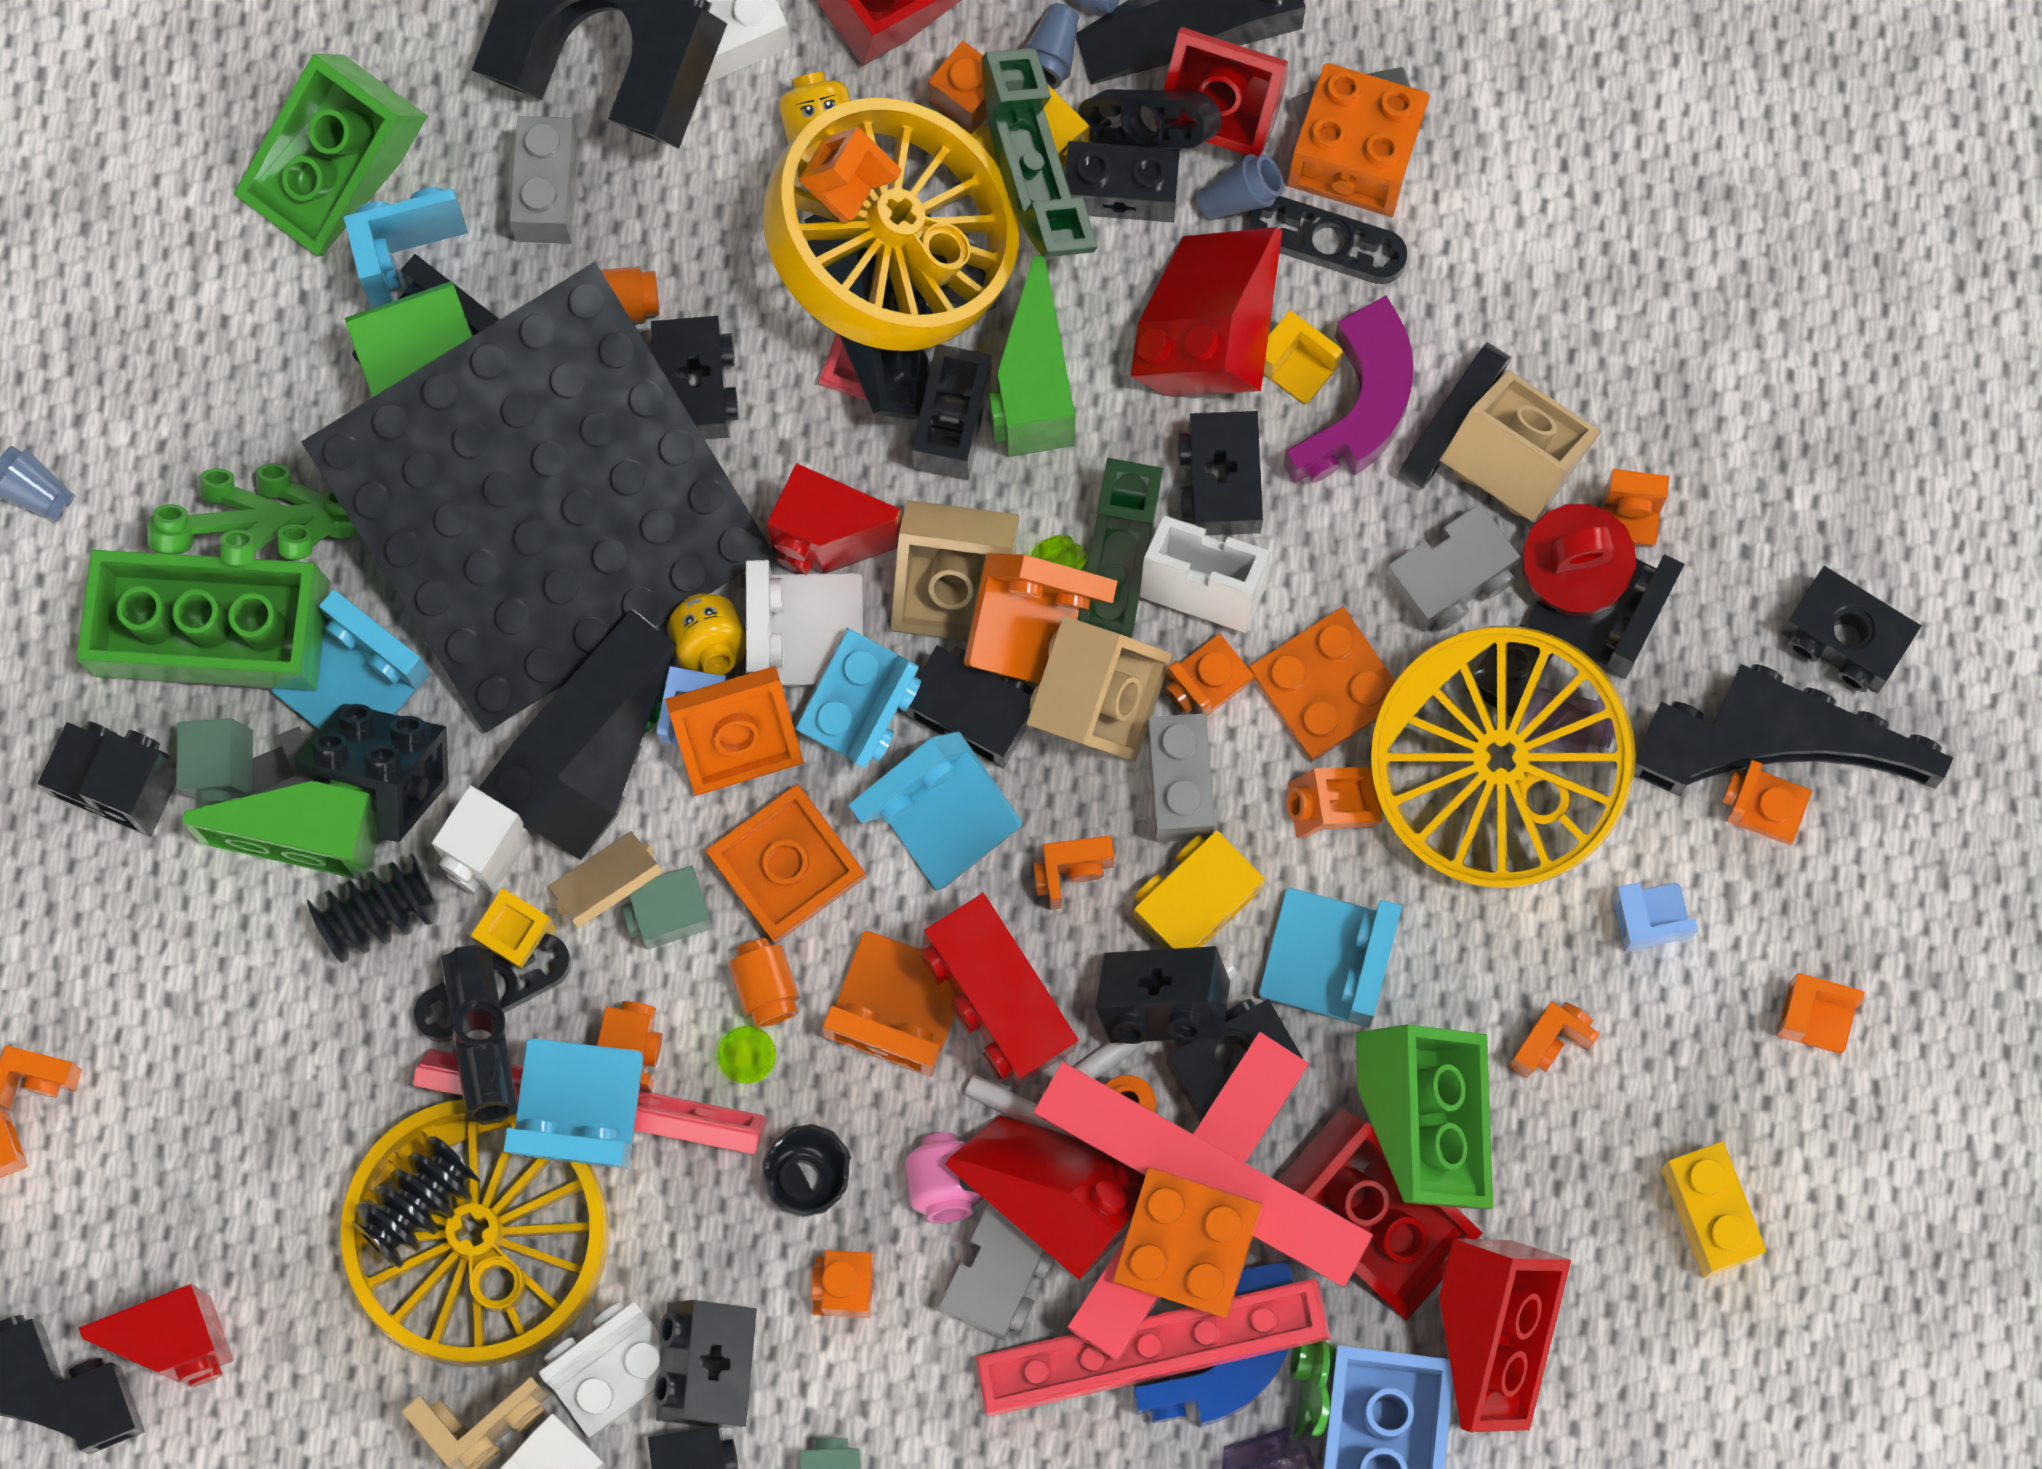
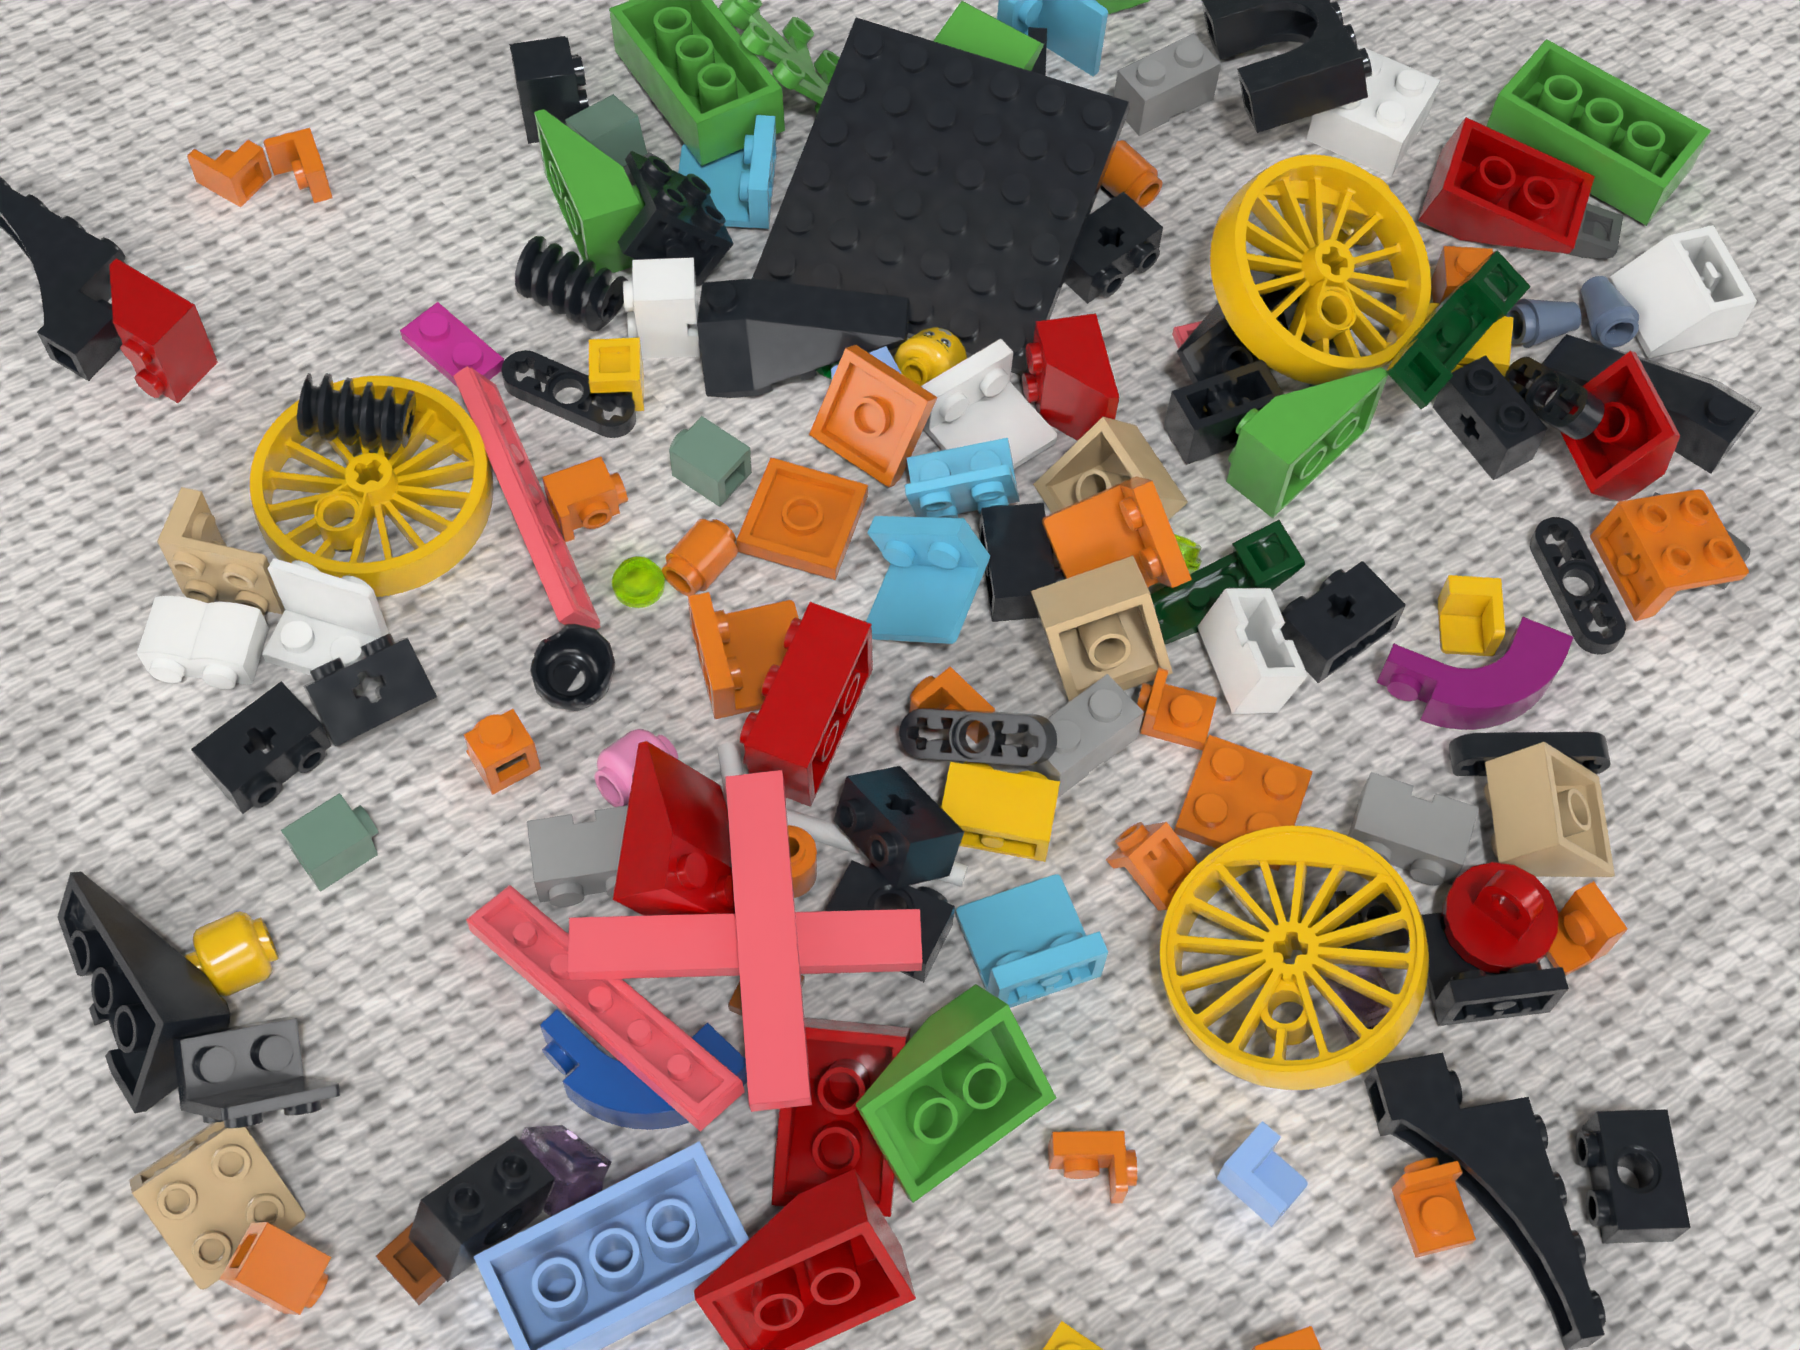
camera: 50 degrees right, 15 degrees down
(358, 1063) = (450, 344): none -> dark pink plate
(481, 1063) = (515, 384): black piece -> none
(577, 1103) = (505, 472): medium azure bracket -> none
(604, 879) = (698, 405): tan piece -> none
(846, 171) = (1329, 199): orange panel -> none
(1147, 830) = (956, 746): none -> black beam
(1188, 1242) = (699, 956): orange plate -> none
(1210, 315) = (1441, 533): red slope -> none
(1242, 188) = (1562, 496): sand blue cone -> none
(1313, 1367) = (667, 1142): bright green plate -> none

